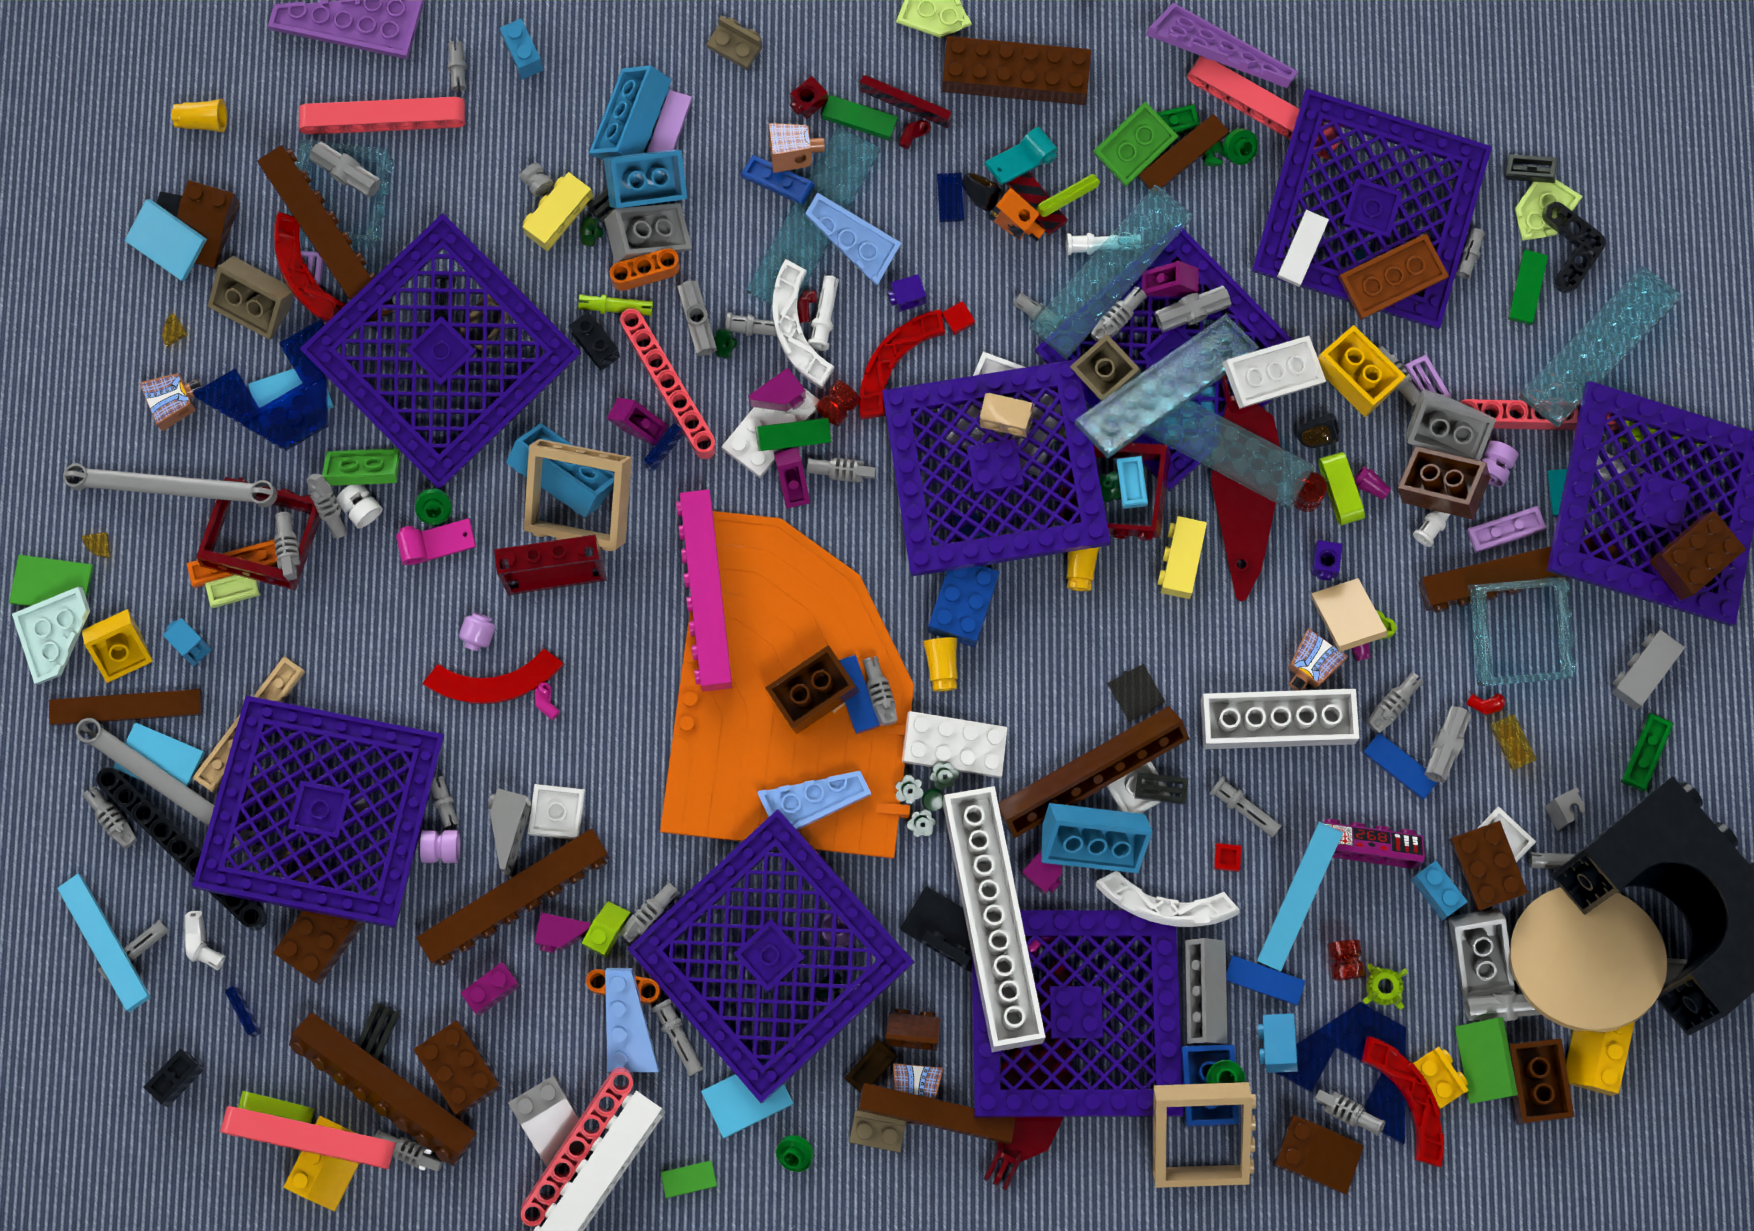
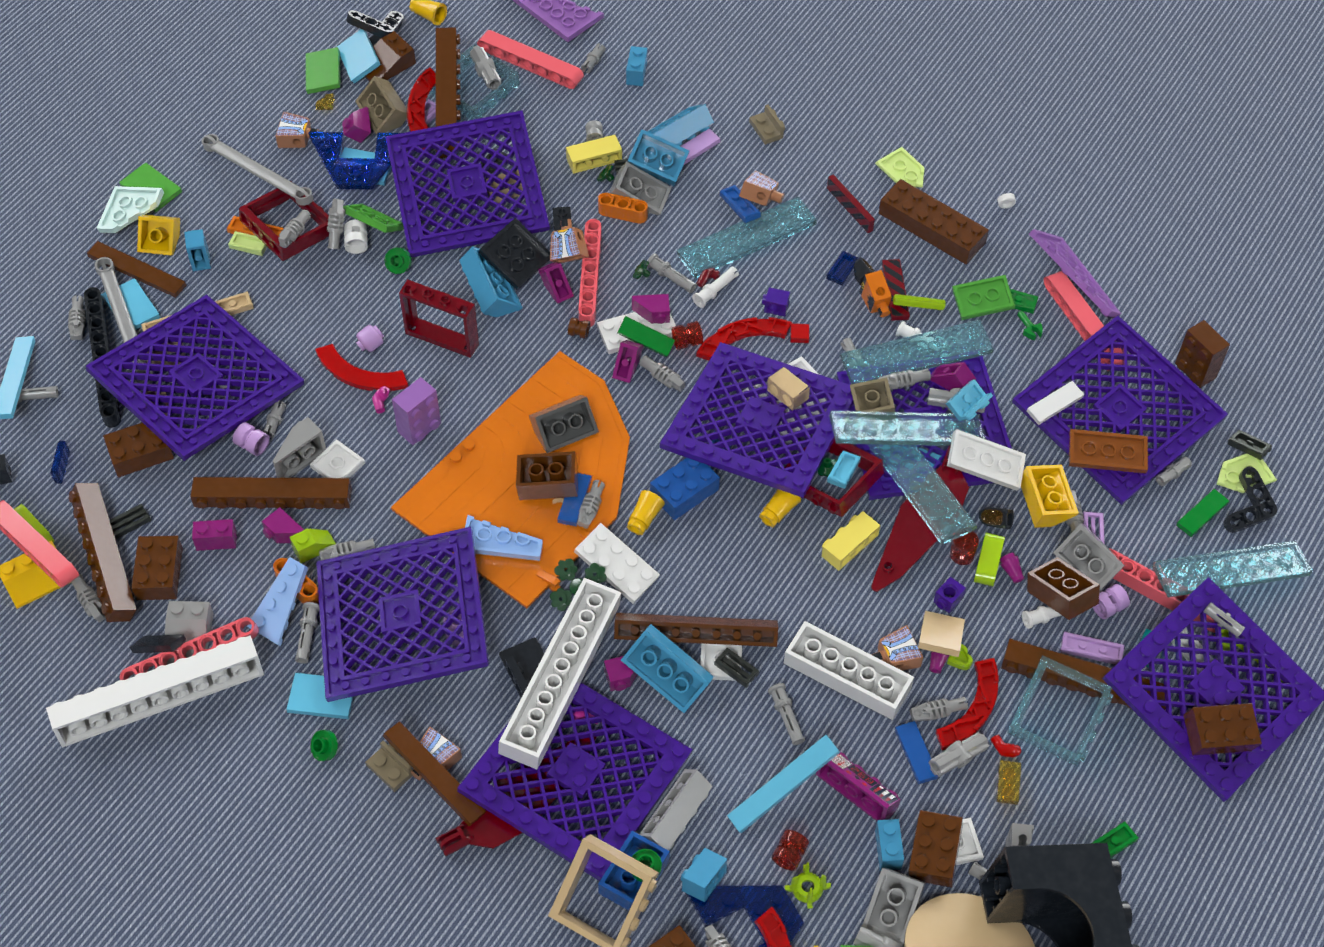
camera: 30 degrees right, 20 degrees down
(98, 544) = (193, 181): clear yellow tile -> none
(135, 287) = (322, 70): none -> bright green tile
(167, 180) = (388, 25): none -> black beam
(195, 942) = (67, 409): white arm -> none
(242, 343) = (357, 125): none -> magenta slope
(422, 546) = (372, 278): dark pink door -> none
(534, 1158) = (158, 643): none -> black tile
(567, 411) = (515, 253): none -> black plate
(587, 457) = (508, 302): tan window -> none
(611, 699) = (416, 411): none -> medium lavender brick
(616, 305) = (585, 214): lime pin -> none
(625, 368) = (567, 243): none -> torso
(663, 447) = (560, 303): clear blue tile -> none
(688, 1179) = (245, 722): bright green tile -> none
(694, 305) = (634, 248): light grey piece -> none
(705, 589) = (524, 390): dark pink brick -> none
(707, 468) = (578, 328): none -> reddish brown wheel
(779, 606) = (564, 423): none -> dark grey slope
(788, 328) = (687, 277): white tile -> none
(808, 88) = (791, 172): dark red brick -> none
(857, 239) = (765, 256): light blue wing -> none
(859, 117) = (816, 200): green tile -> none
(871, 1066) = (419, 723): dark brown tile -> none
(912, 131) = (844, 222): dark red arm -> none
(913, 1030) = (456, 715): reddish brown slope -> none
(1032, 152) = (914, 269): teal door -> none
(1136, 692) = (762, 604): clear smoke piece -> none
(1164, 910) = (687, 745): white tile -> none
(1184, 153) = (1014, 317): reddish brown tile -> none
(1214, 309) = (968, 401): none -> medium azure bracket
(1227, 857) = (753, 739): red tile -> none
(1240, 146) = (1053, 332): green plate -> none
(1264, 980) = (723, 832): blue tile -> none
(1424, 85) = (1202, 354): none -> reddish brown brick
(1434, 672) = (979, 710): none -> red tile
(1632, 423) = (1236, 628): none -> light grey pin
(1647, 669) = (1140, 790): light grey brick -> none

